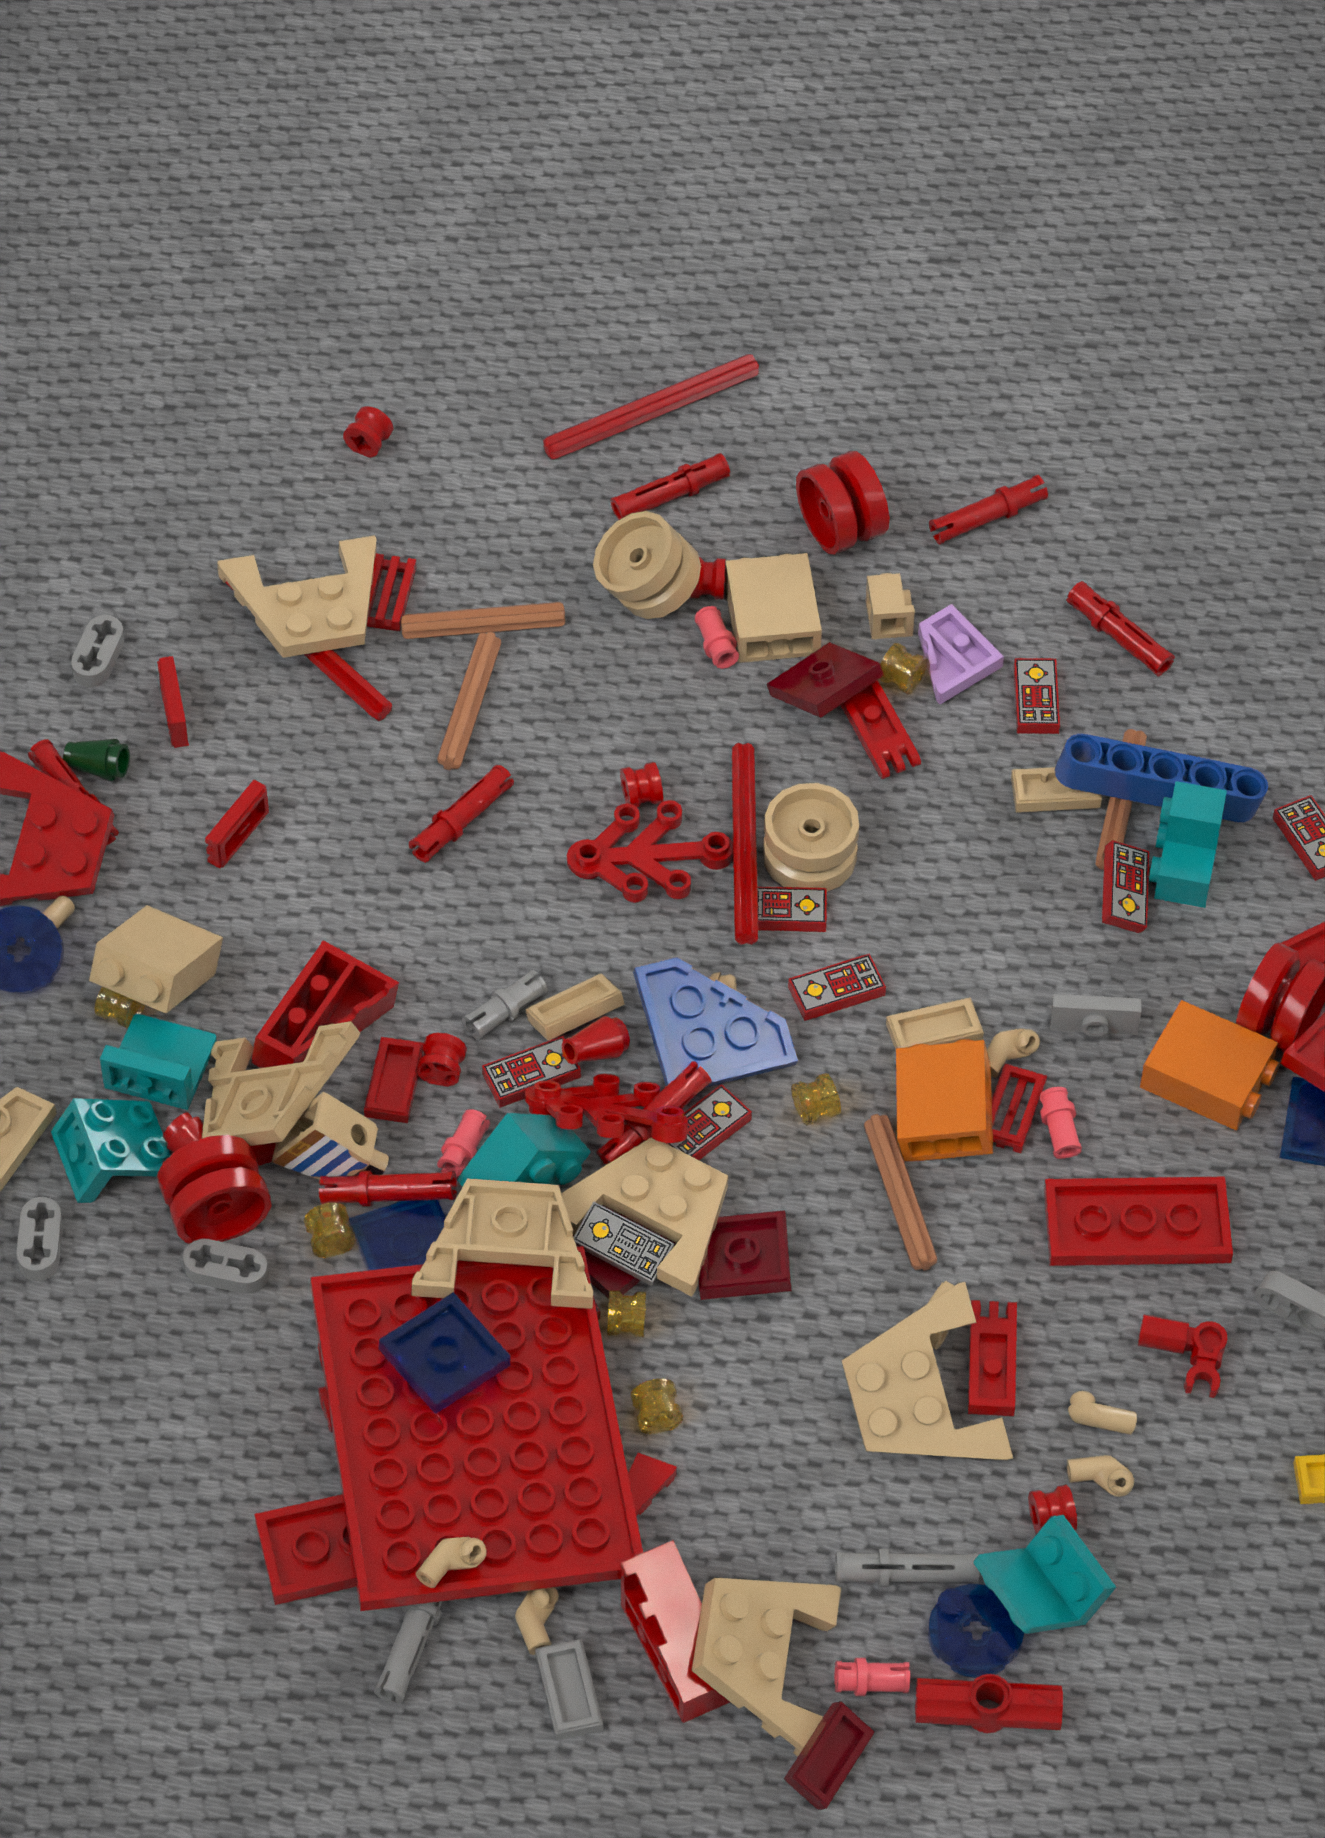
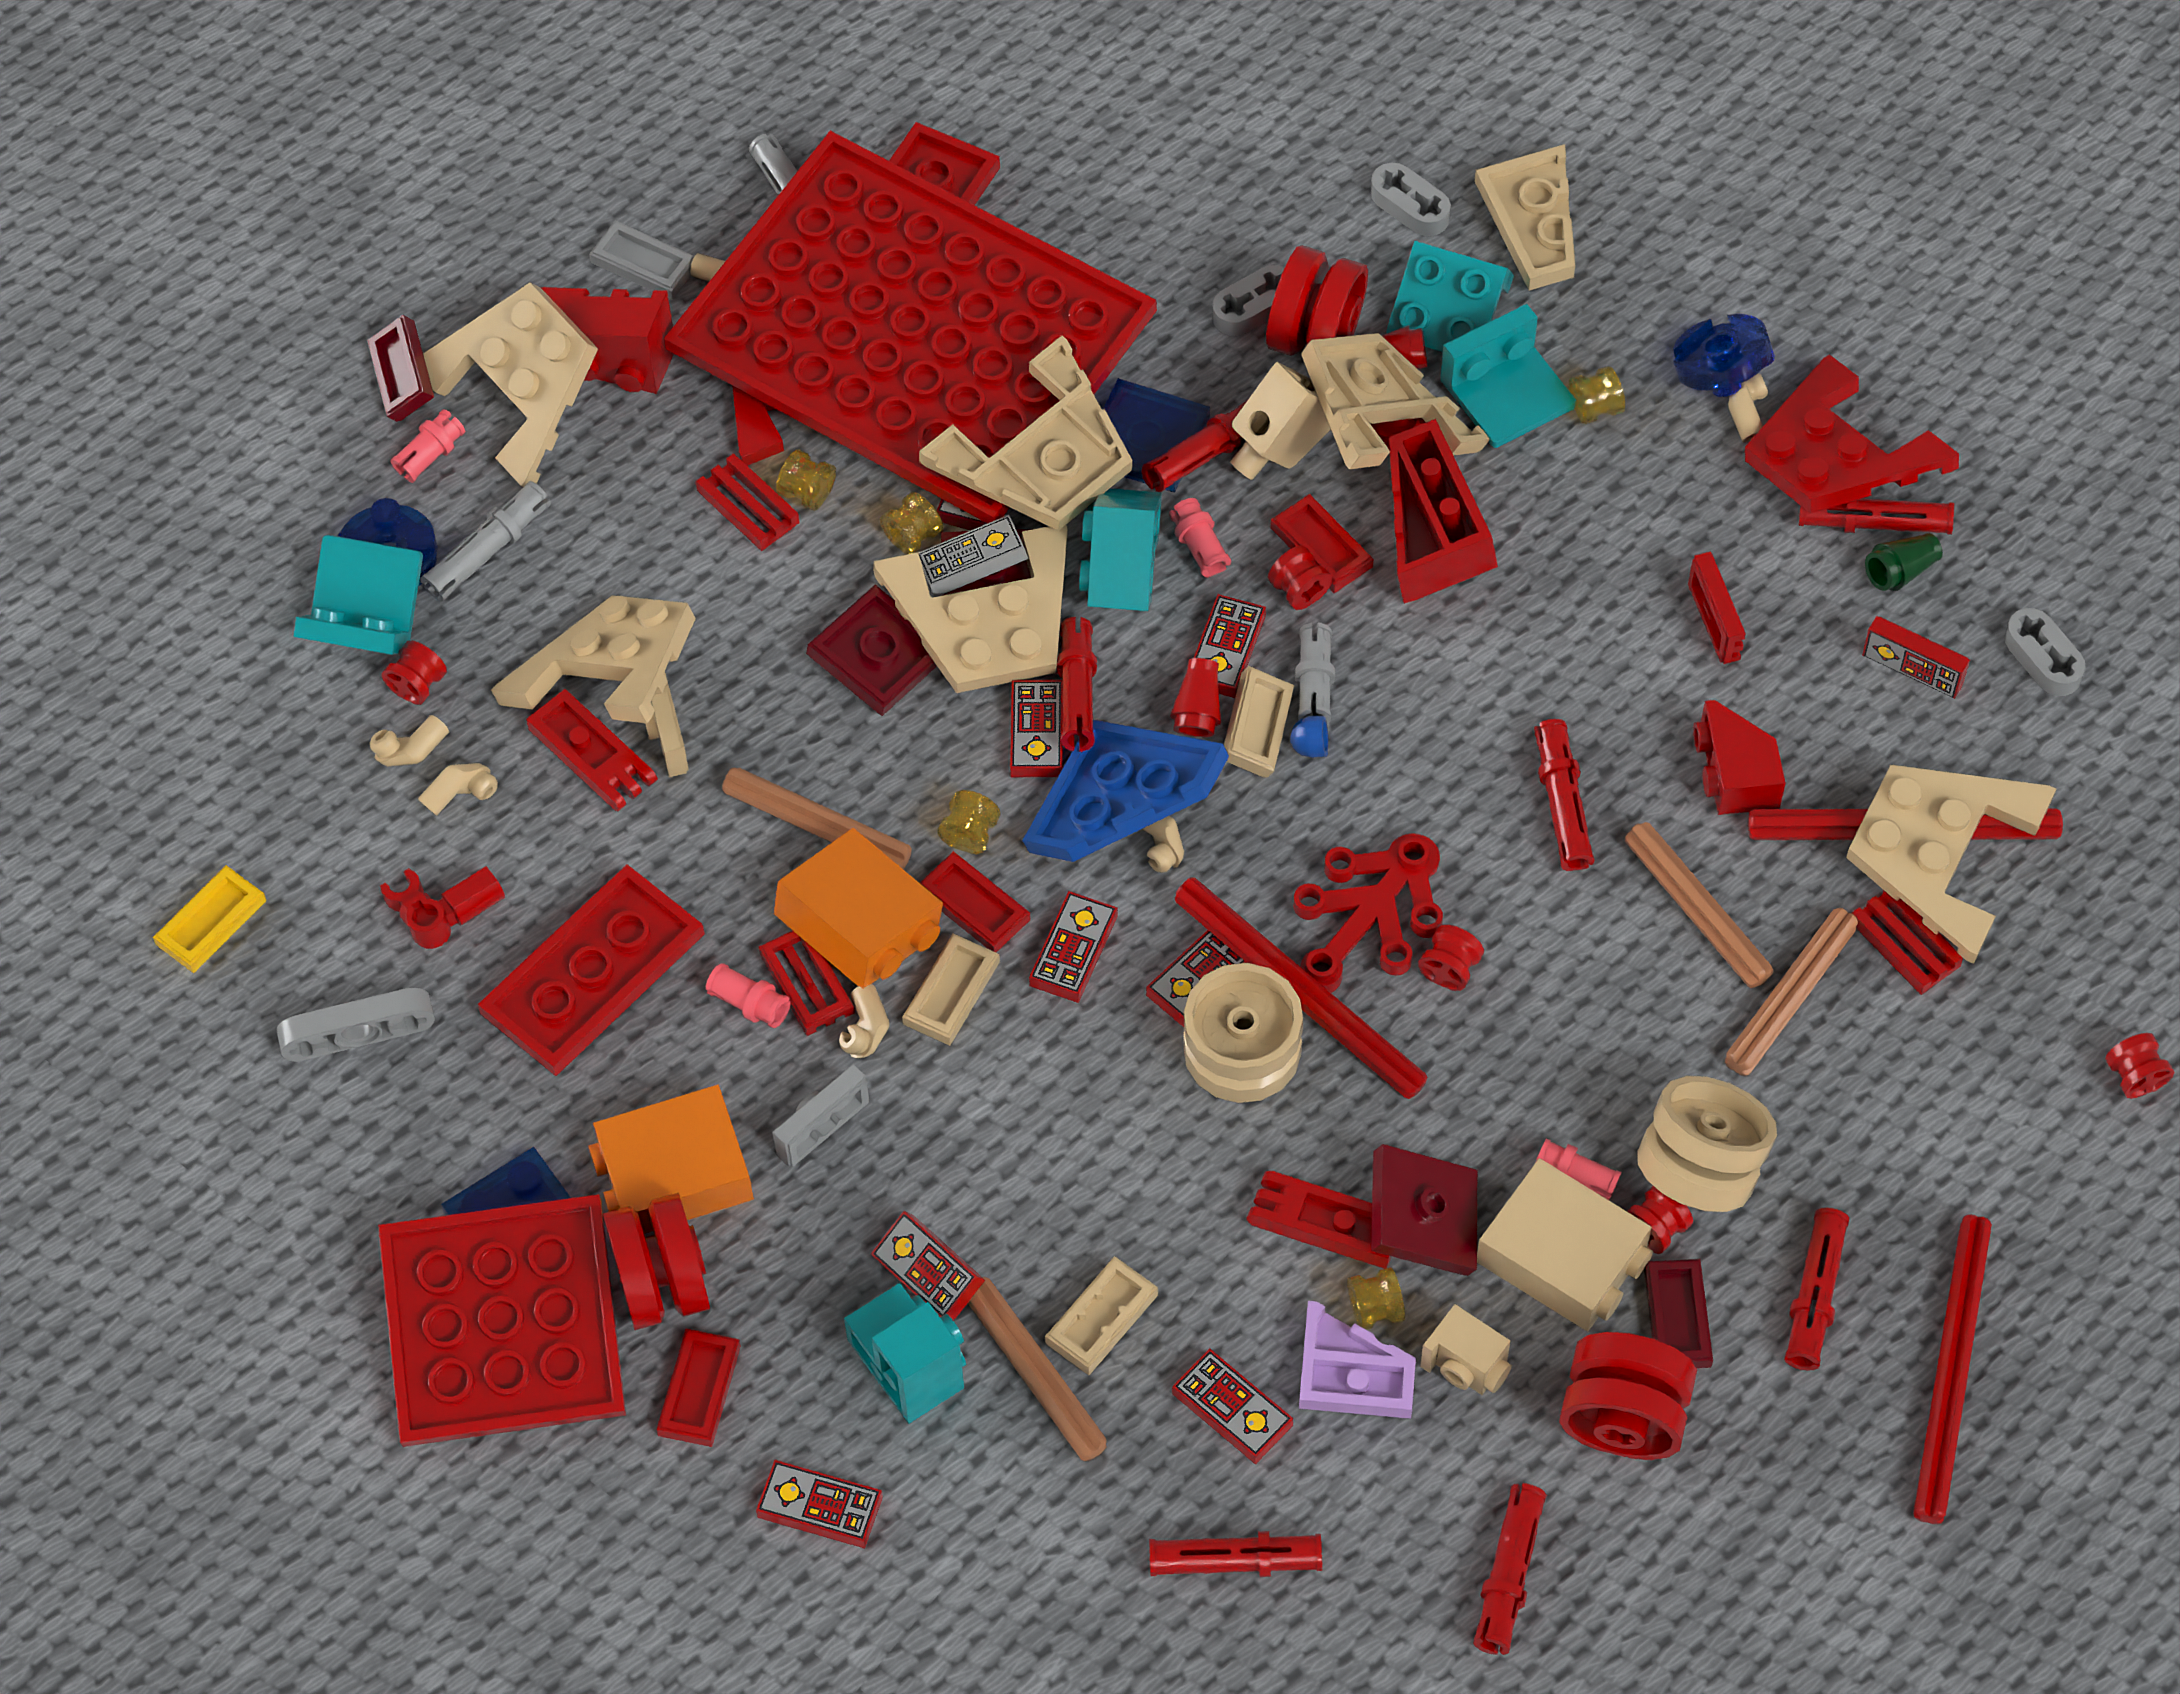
camera: 135 degrees right, 5 degrees up
(156, 959) = (1605, 423): tan brick -> none
(329, 1230) = (1209, 381): clear yellow wheel -> none
(350, 735) = (1741, 761): none -> red slope
(444, 1352) = (981, 324): clear blue plate -> none
(451, 1555) = (802, 205): tan arm -> none
(555, 968) = (1310, 736): none -> blue hinge
(607, 1110) = (1123, 640): red plant -> none
(708, 1405) = (723, 477): none -> red tile
(754, 537) = (1679, 1308): none -> dark red tile
(863, 1063) = (976, 902): none -> red tile
(1019, 1704) = (298, 509): red piece -> none
(1150, 774) = (998, 1419): blue beam -> none

